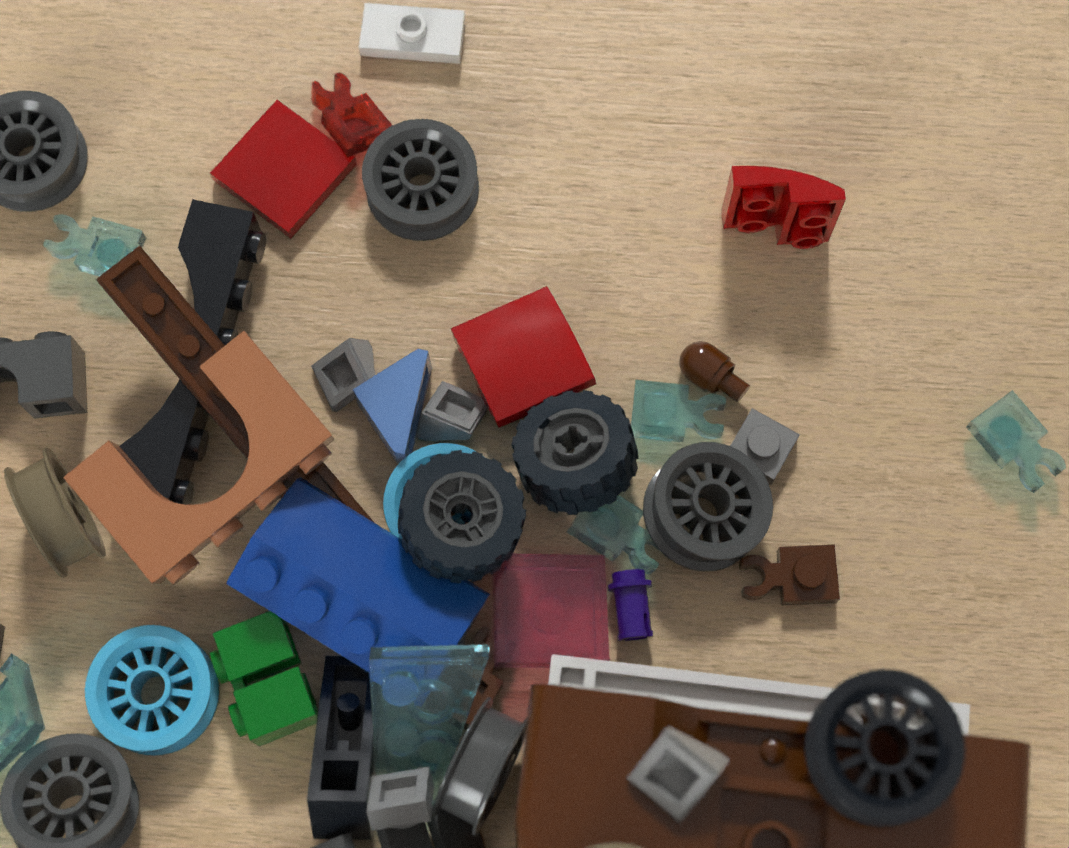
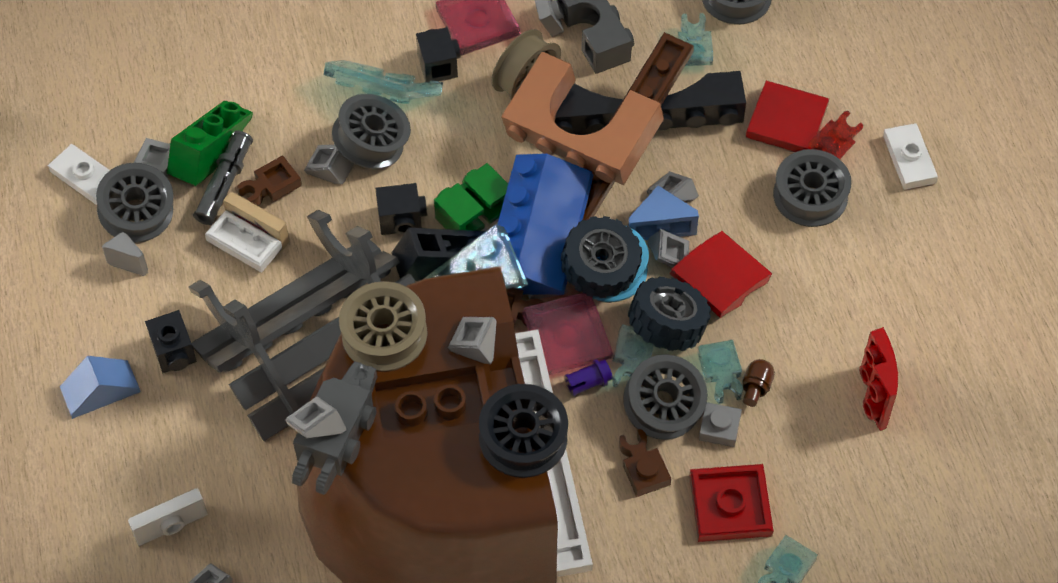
camera: 70 degrees right, 15 degrees down
(114, 658) = (442, 135): medium azure wheel -> none
(236, 798) = (400, 208): none -> black brick
(400, 799) = (420, 269): light grey plate -> none
(887, 476) = (731, 503): none -> red tile

